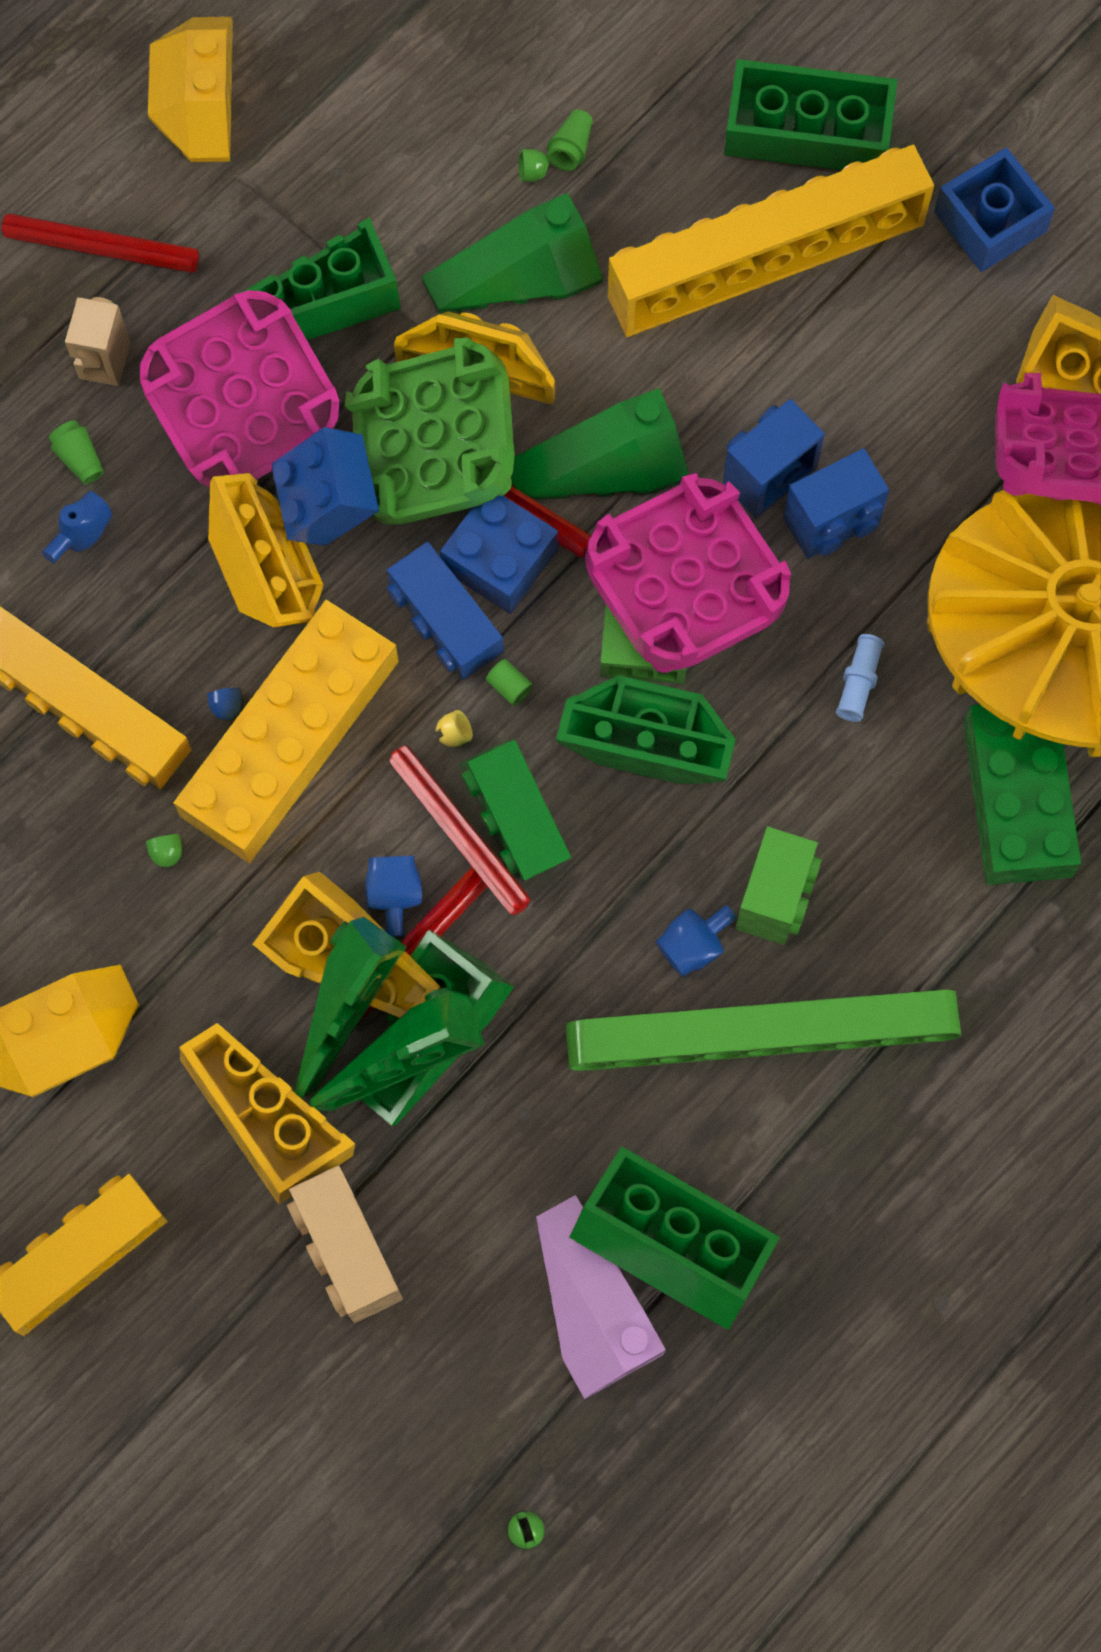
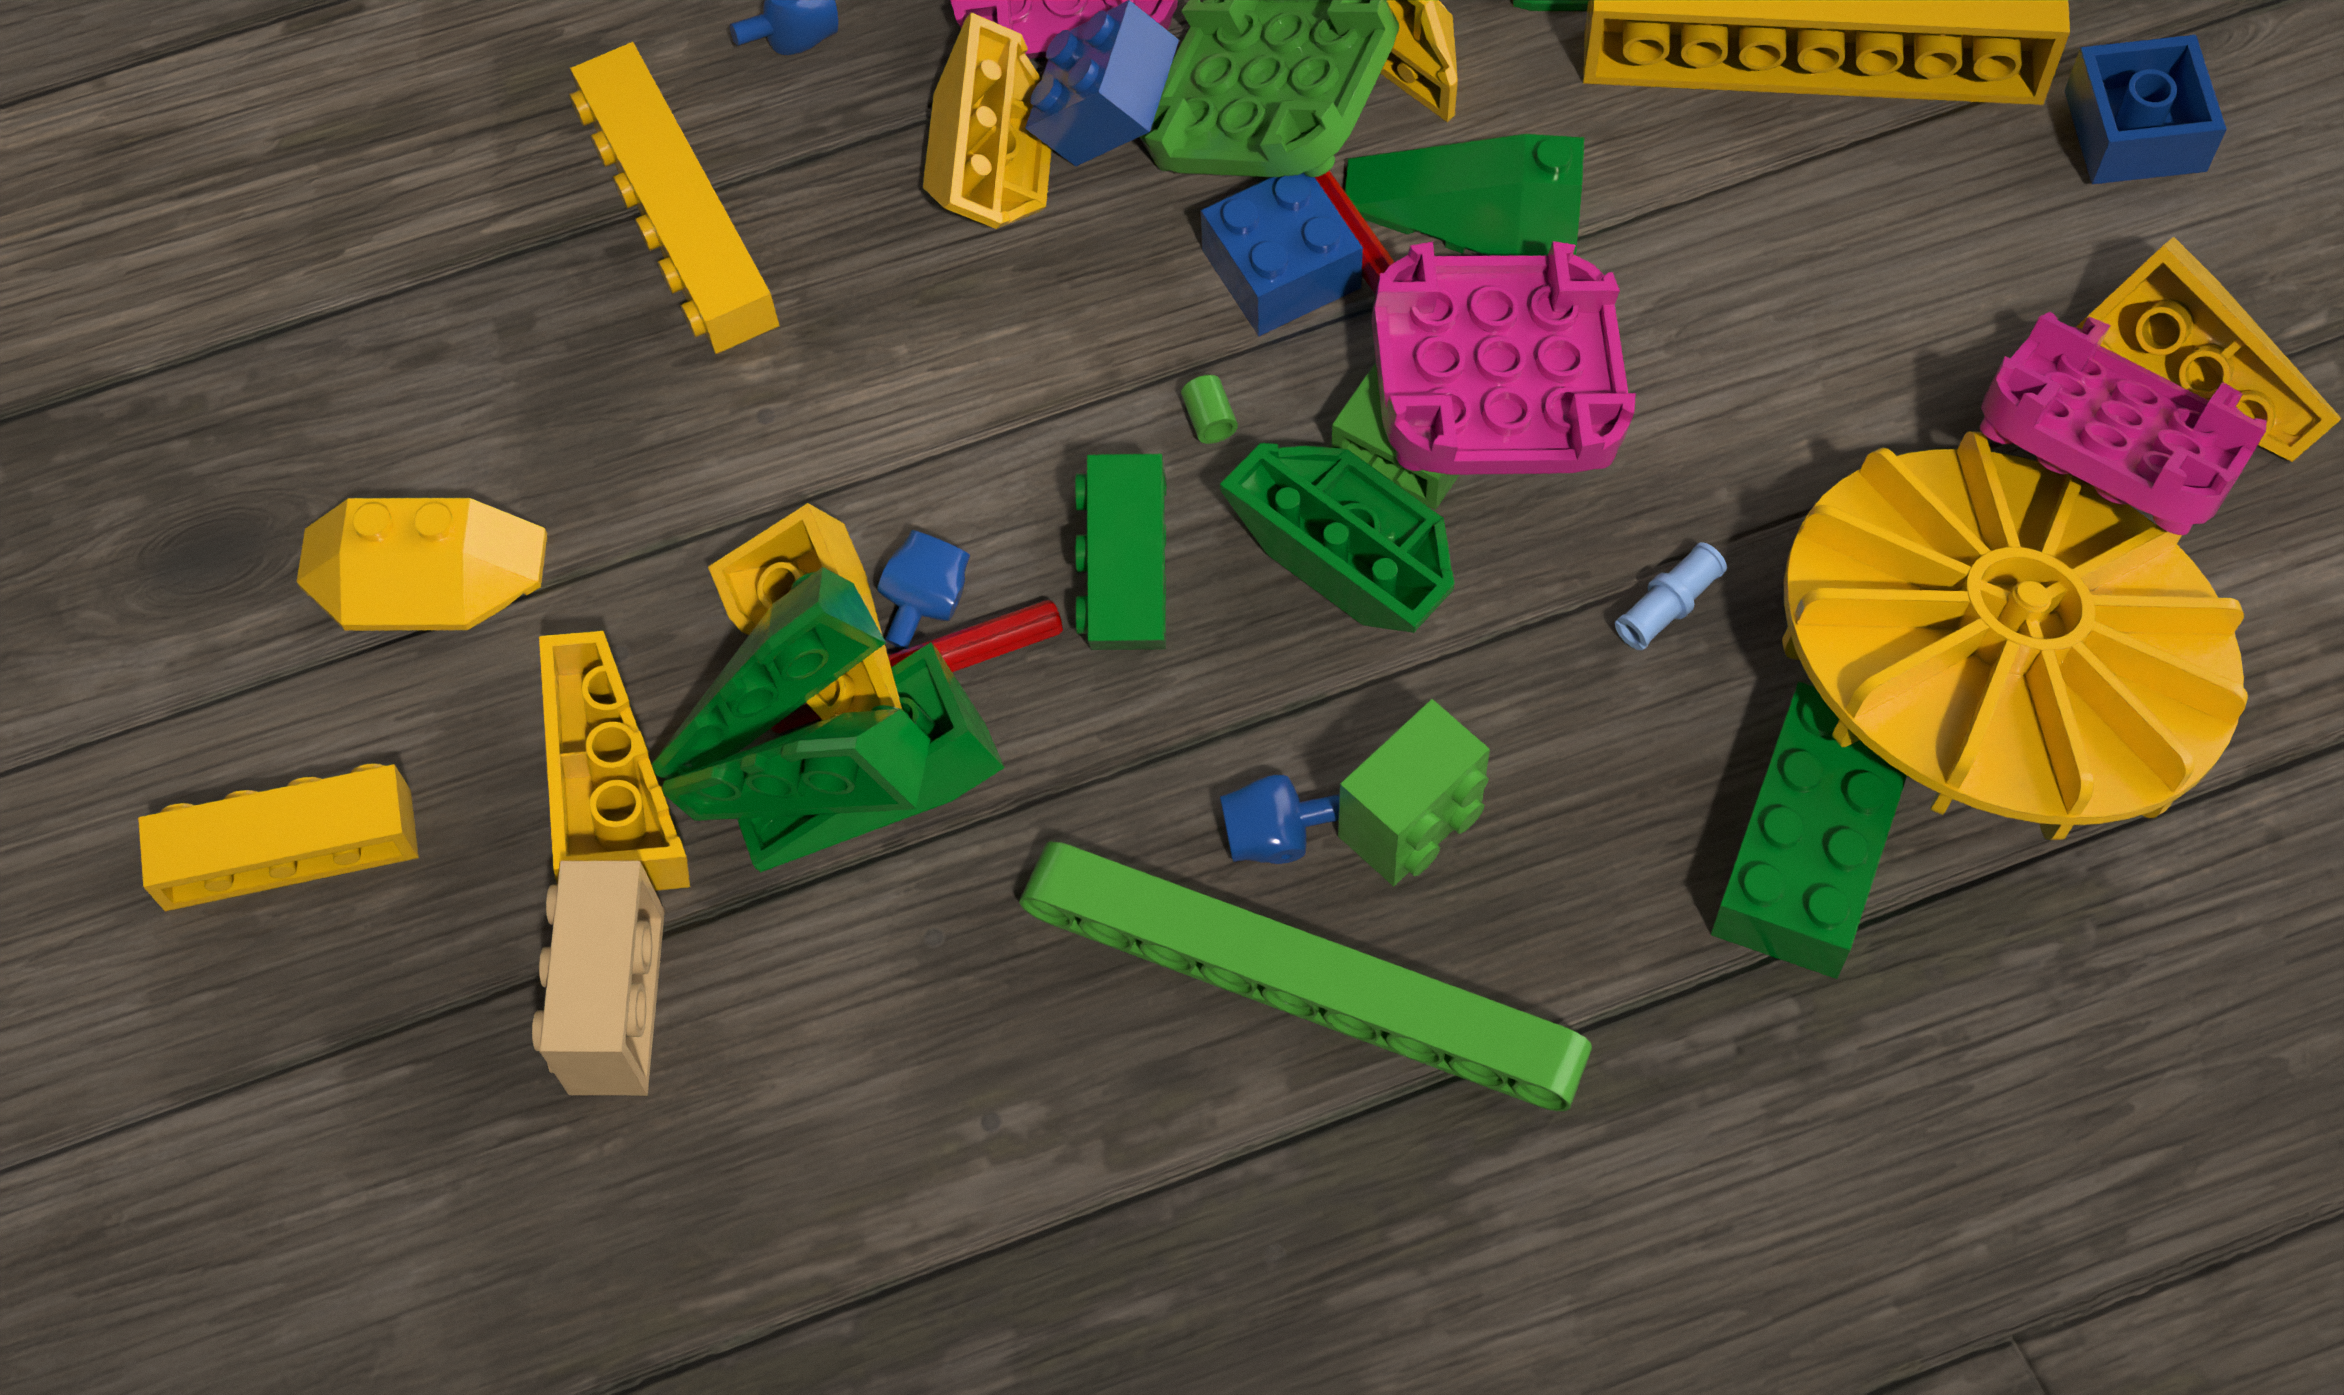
camera: 30 degrees right, 10 degrees down
(165, 850) = (675, 418): bright green hinge -> none
(225, 703) = (848, 284): blue hinge -> none
(287, 731) = (899, 345): yellow brick -> none
(444, 611) = (1171, 292): blue brick -> none
(455, 729) = (1109, 432): light yellow hinge -> none
(460, 830) = (1044, 553): axle -> none
(594, 1309) = (881, 1232): lavender wedge -> none
(674, 1237) = (1028, 1176): green brick -> none
(772, 456) = (1690, 277): blue brick -> none
(836, 504) = (1745, 364): blue brick -> none

